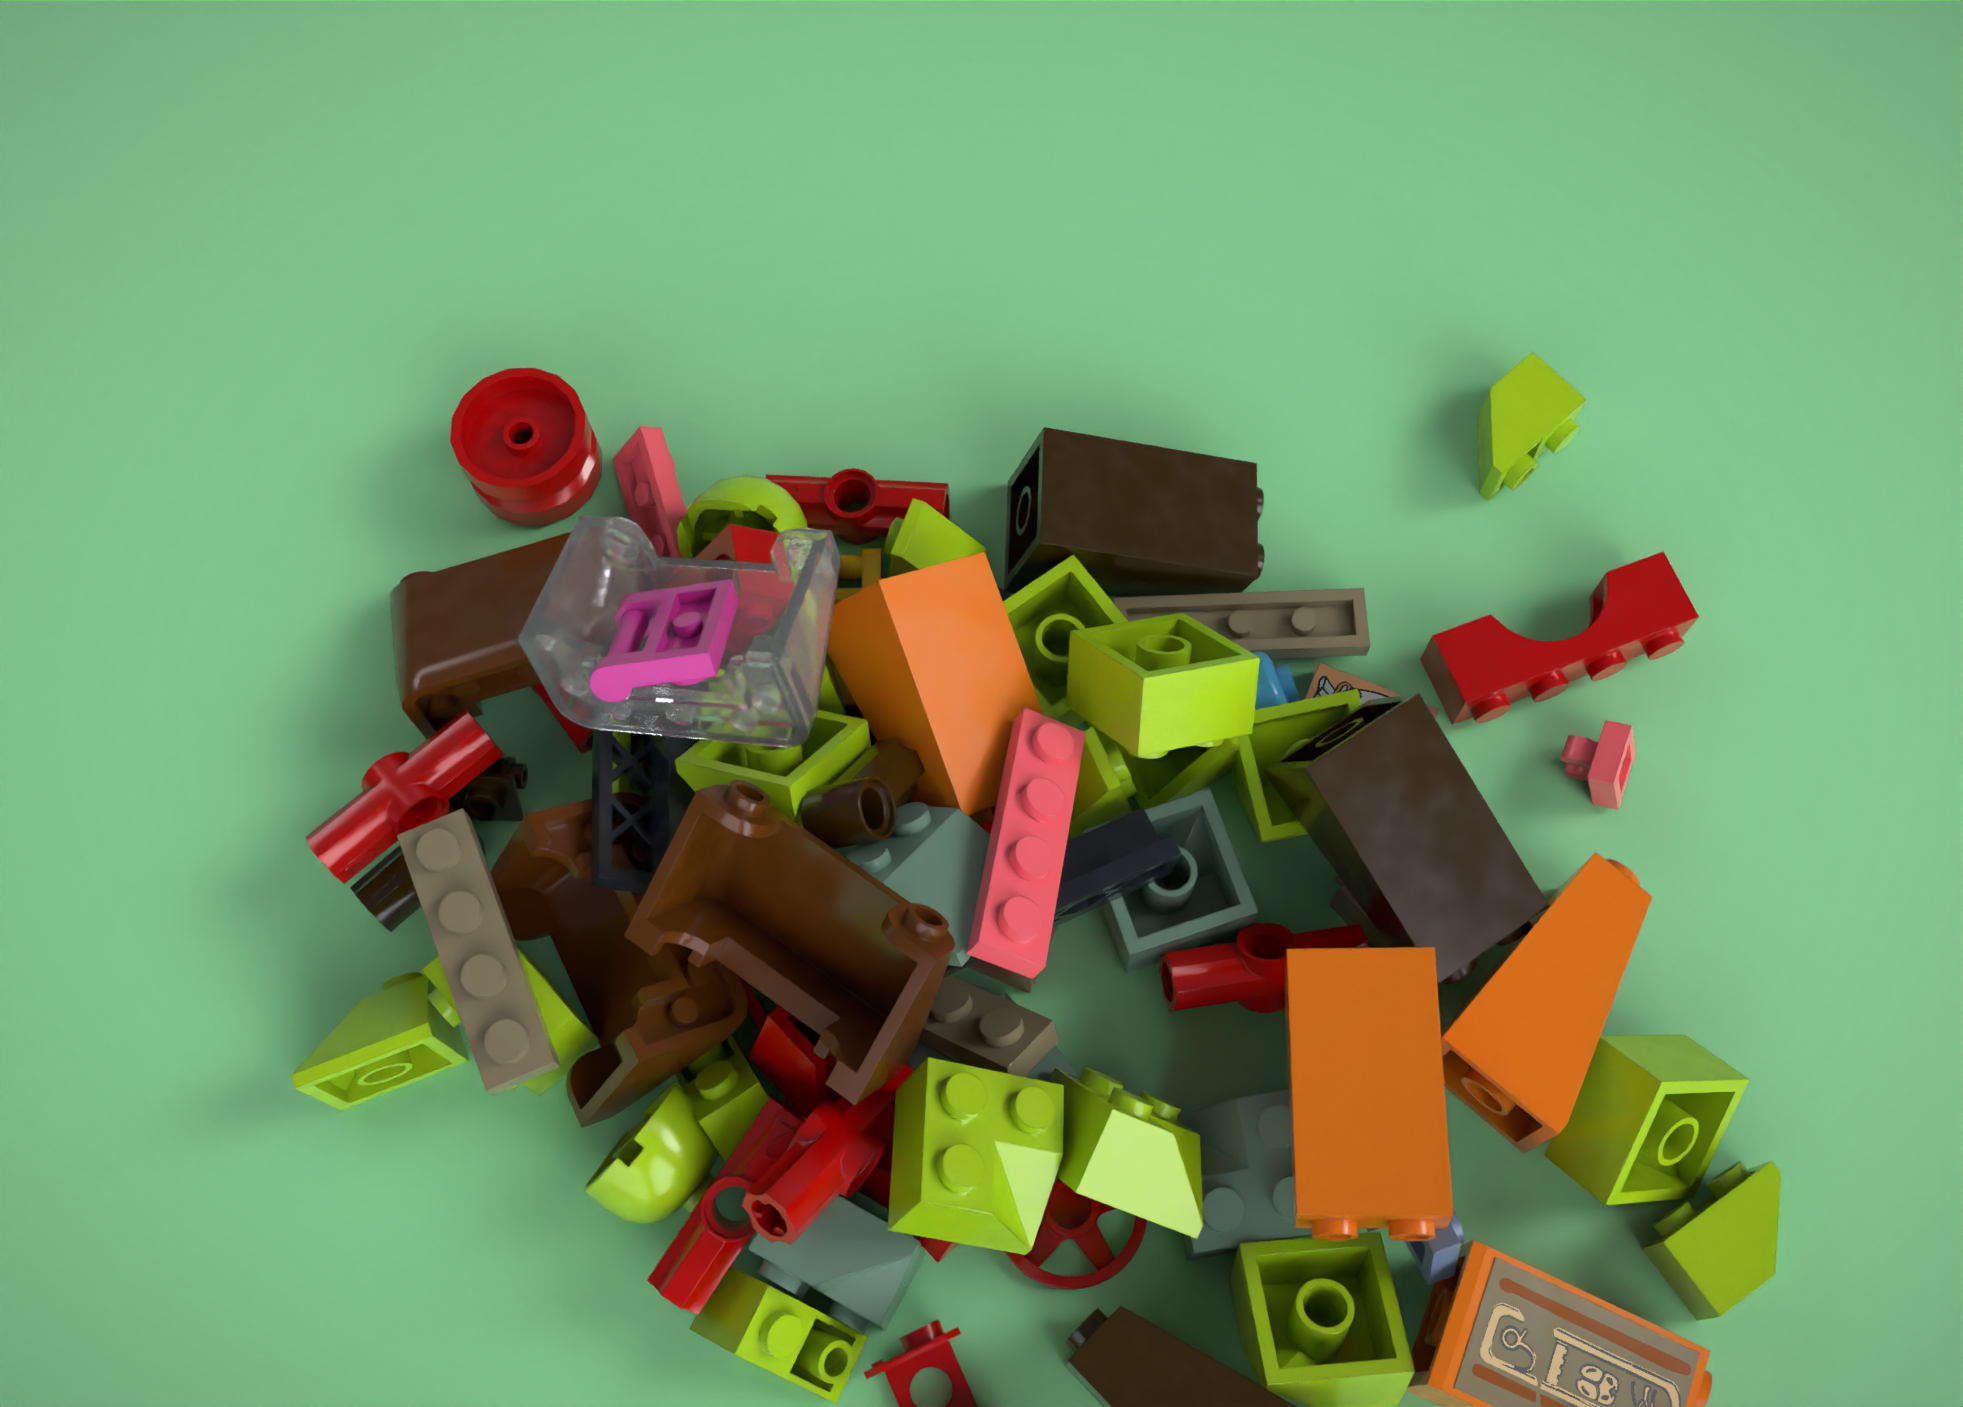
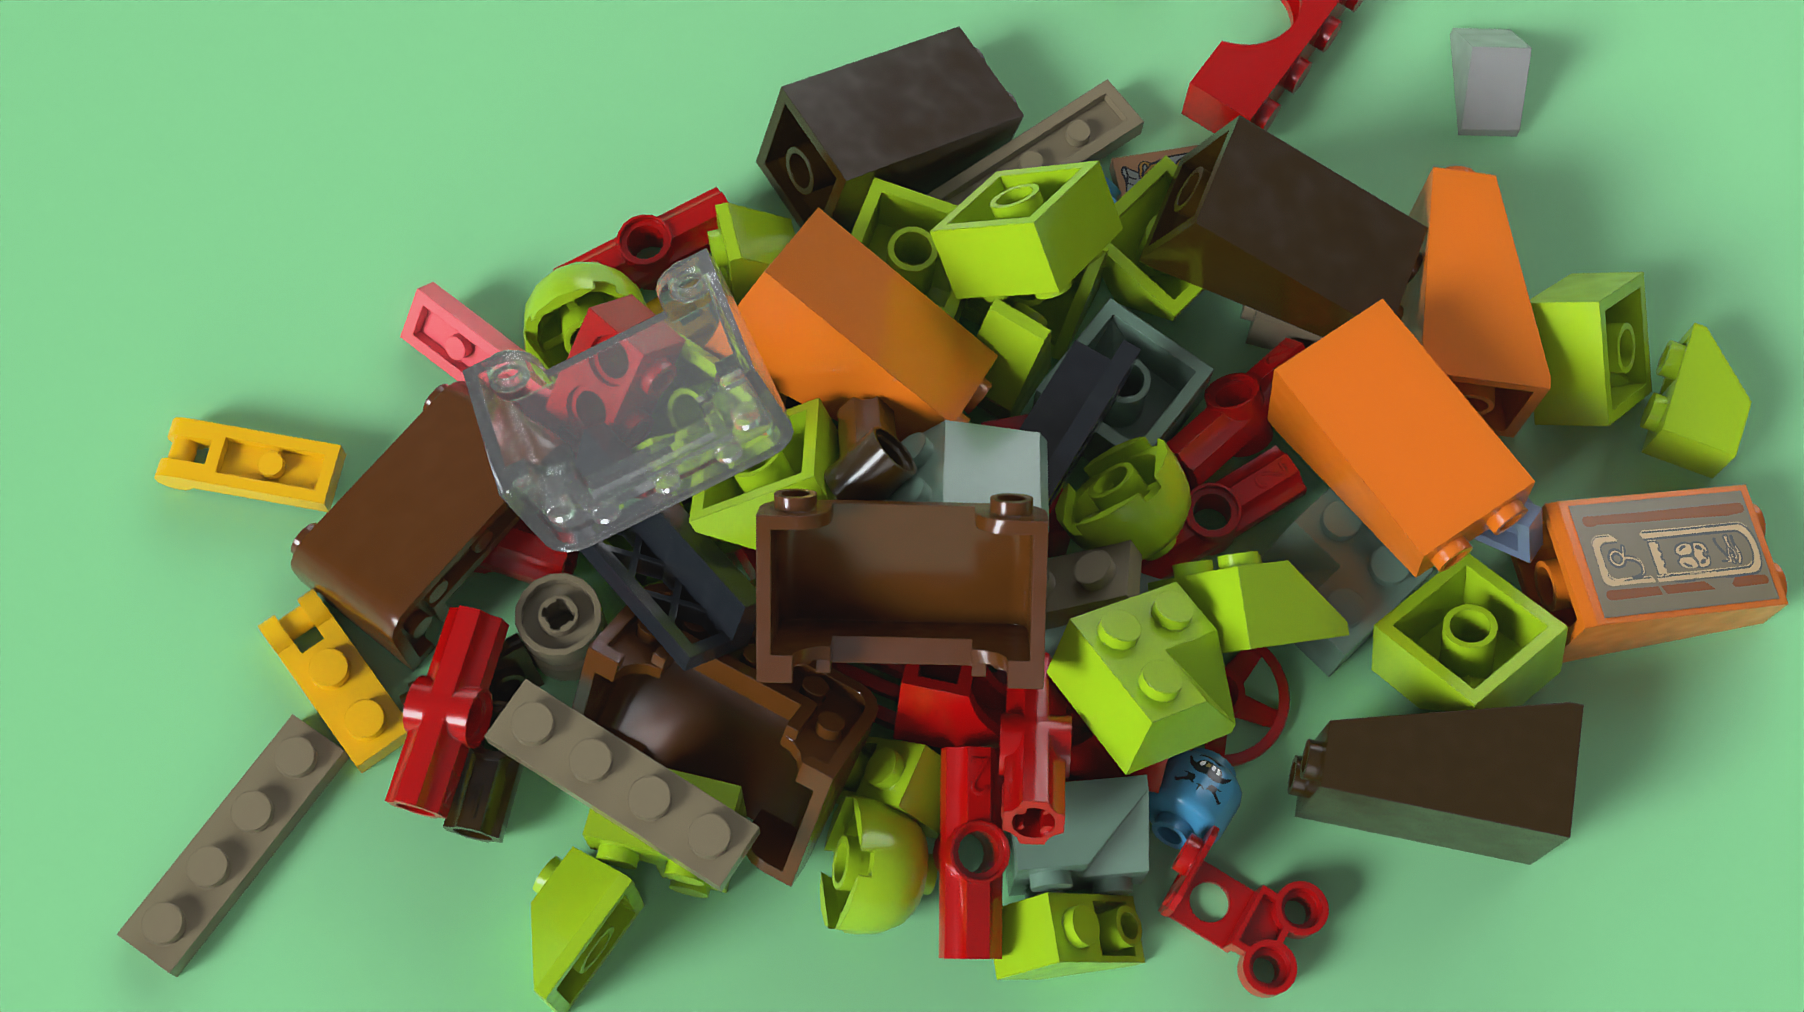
camera: 40 degrees left, 0 degrees up
(197, 797) = (233, 846): none -> dark tan plate
(363, 709) = (338, 682): none -> yellow plate
(425, 496) = (252, 464): none -> yellow plate
(526, 446) = (324, 364): red wheel -> none
(549, 771) = (558, 622): none -> dark tan wheel
(684, 642) = (637, 407): dark pink plate -> none
(974, 1290) = (1194, 796): none -> dark azure head
(1027, 845) = (1022, 411): coral plate -> none
(1092, 986) = (1130, 495): none -> lime cylinder
(1219, 1045) = (1242, 498): none -> red piece
(1602, 763) = (1376, 109): coral tile -> none
(1739, 801) = (1489, 80): none -> light grey slope

